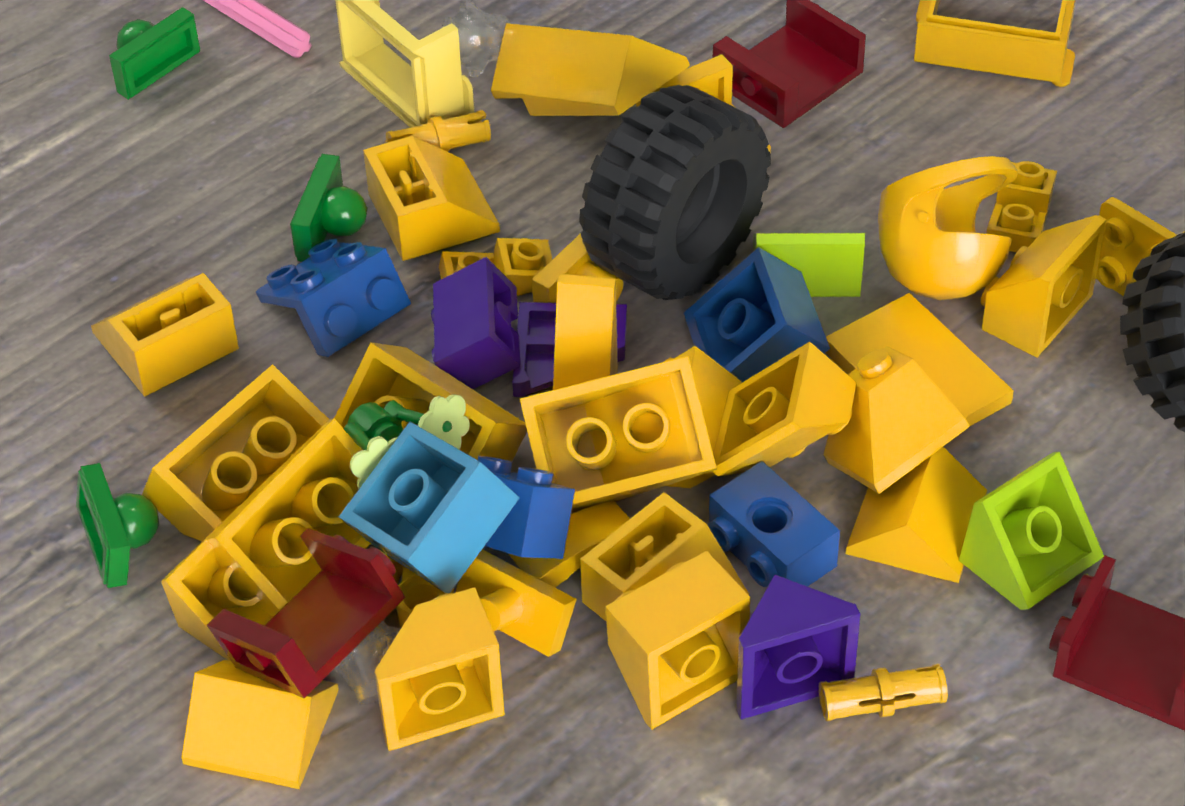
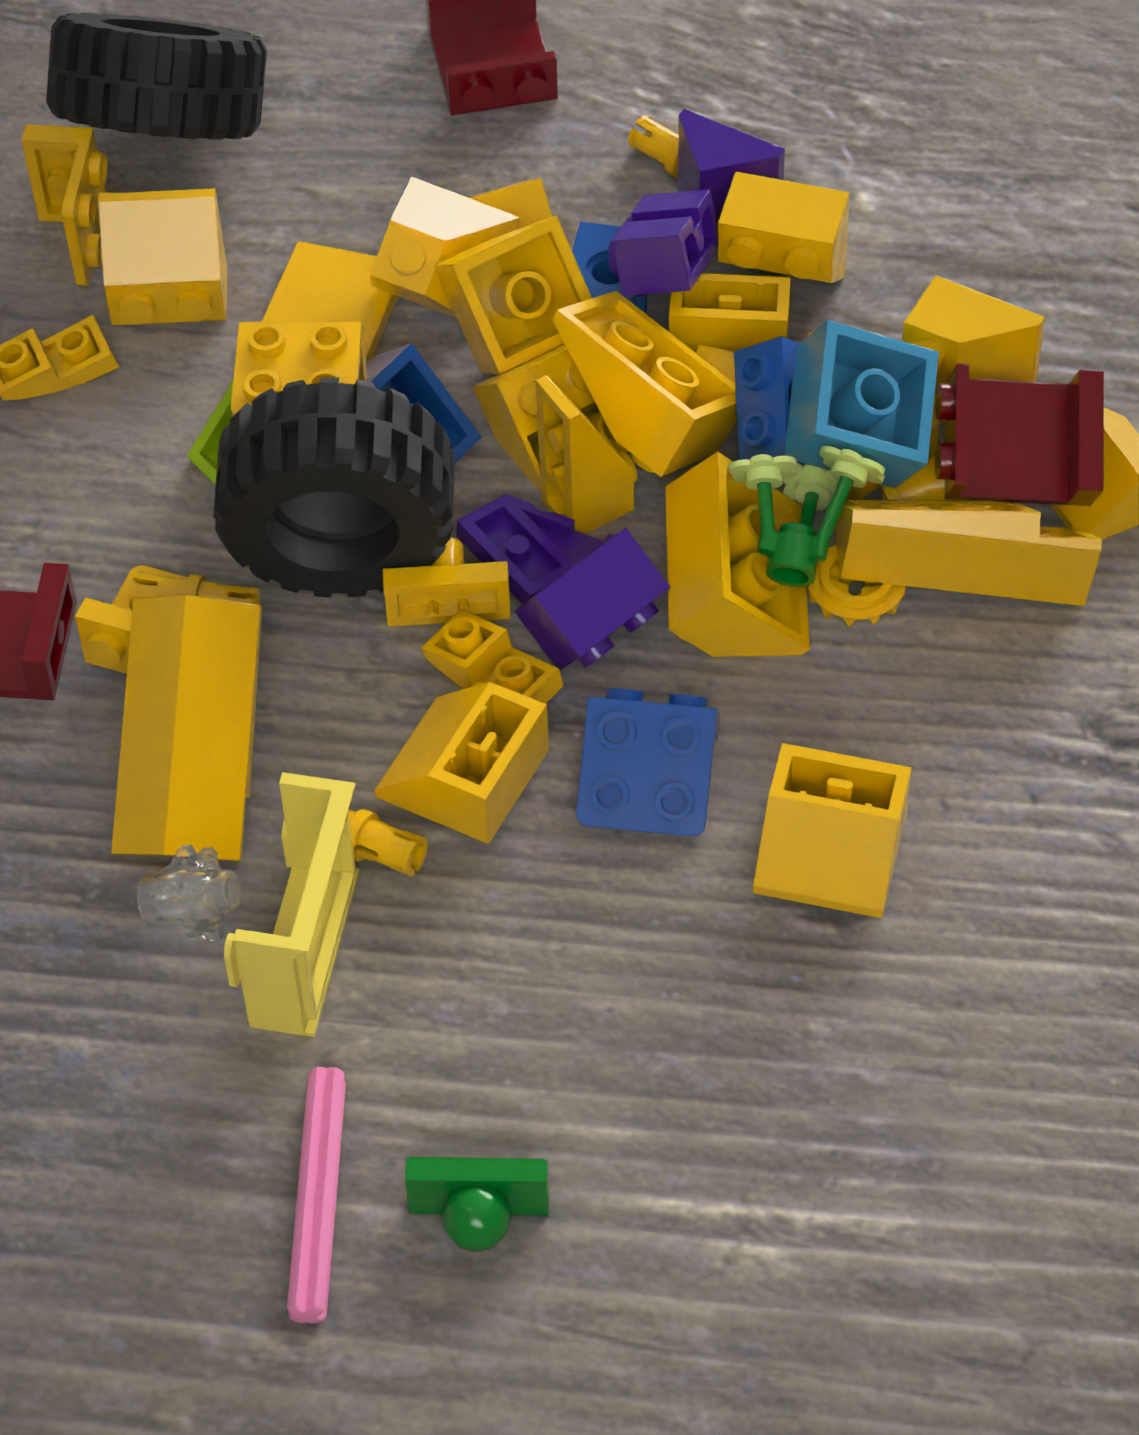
camera: 130 degrees left, 5 degrees up
(113, 523) = (1062, 697): green tile -> none
(232, 454) = (913, 643): yellow slope -> none
(326, 208) = (556, 841): green tile -> none
(720, 512) = (665, 243): none -> dark purple brick
(789, 199) = (294, 351): none -> yellow bracket
(931, 230) = (180, 333): yellow piece -> none
(1030, 534) = (456, 148): lime slope -> none

